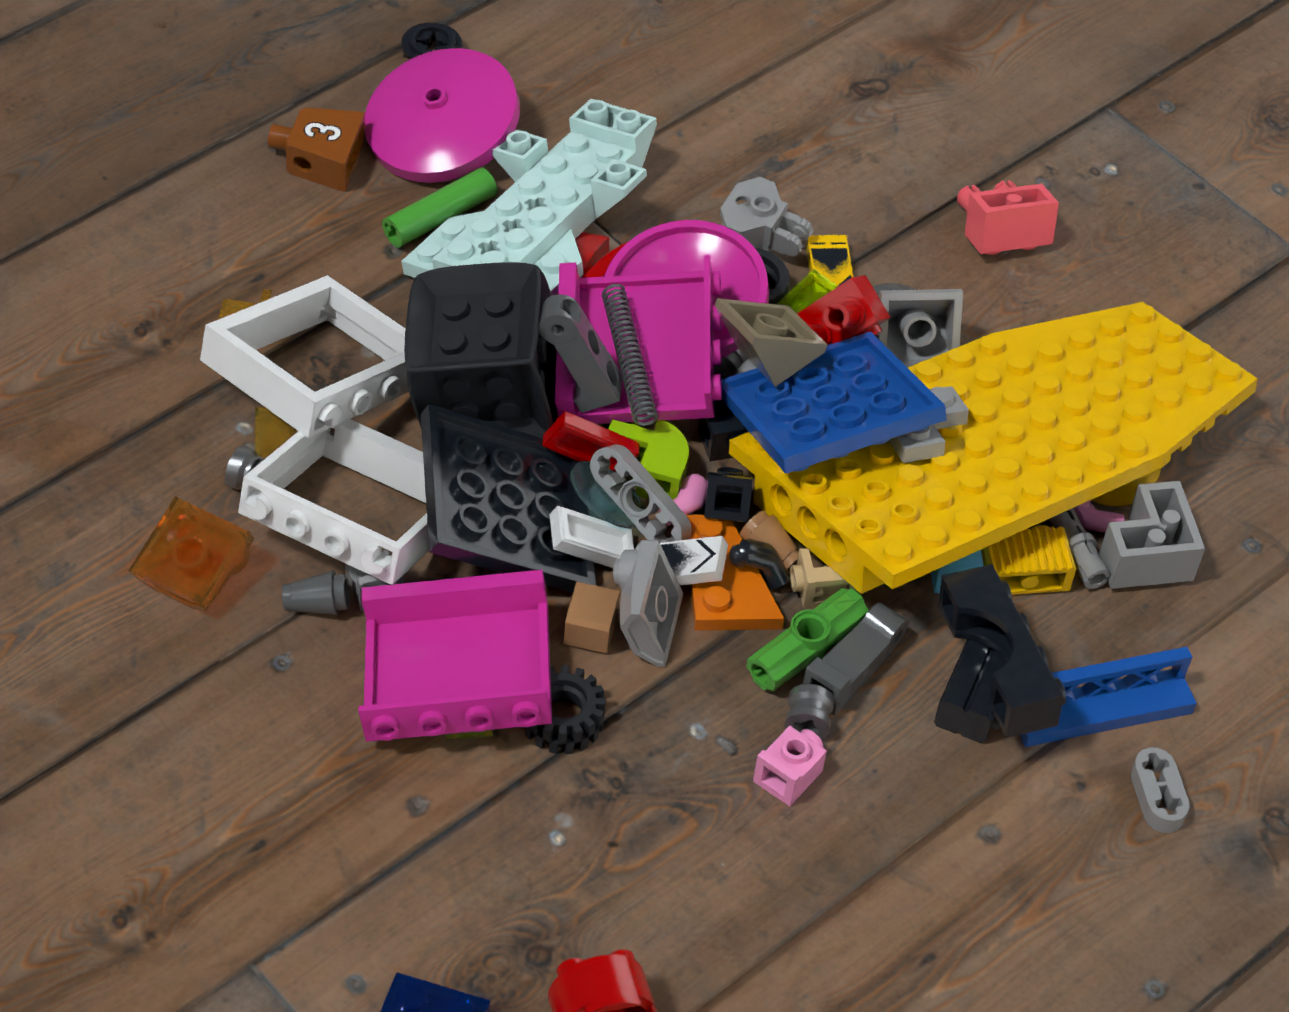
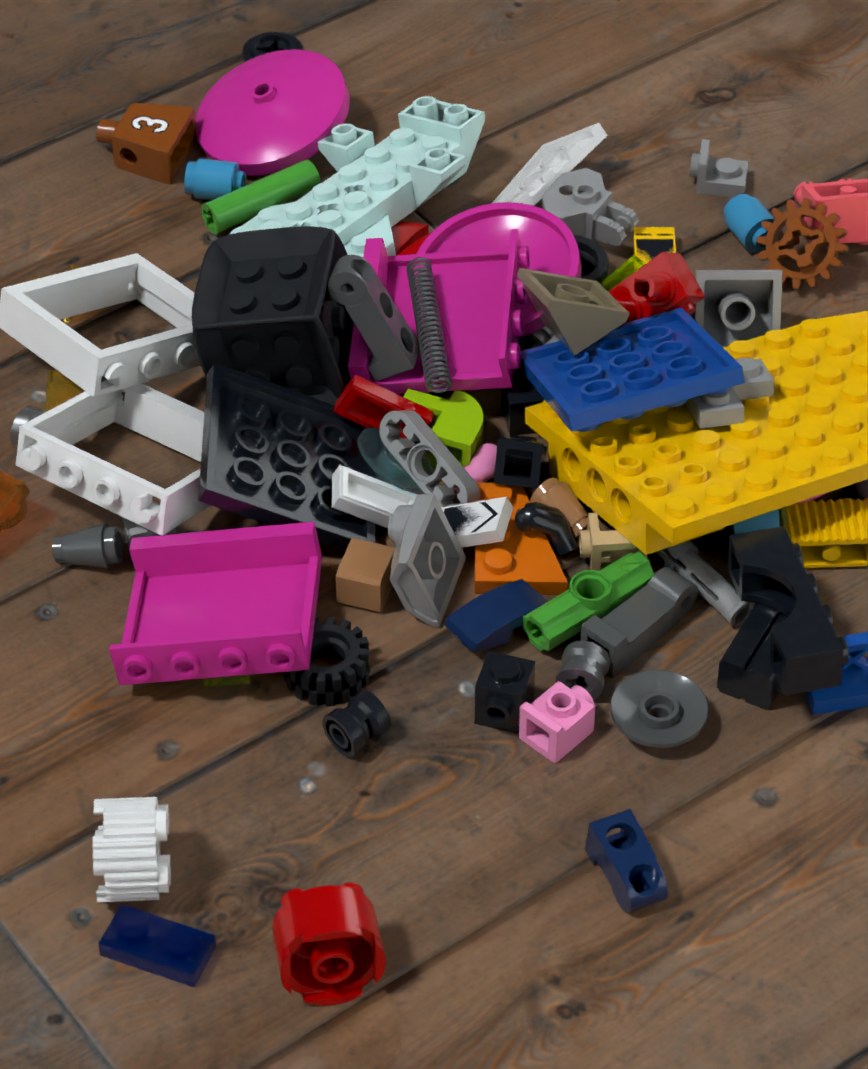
camera: 10 degrees right, 5 degrees down
(391, 189) = (212, 178): none -> dark azure brick
(403, 918) = (129, 849): none -> white brick
(603, 772) = (355, 724): none -> black wheel
(717, 175) = (549, 163): none -> white wing
(719, 656) = (494, 615): none -> dark blue slope
(738, 737) = (502, 689): none -> black brick
(871, 908) = (626, 861): none -> dark blue leg
(882, 176) = (718, 175): none -> light grey bracket
(887, 735) = (659, 708): none -> dark grey dish
(920, 230) = (744, 219): none -> dark azure brick
(920, 618) = (711, 585): none -> light grey pin
(969, 236) = (797, 226): none -> dark orange gear

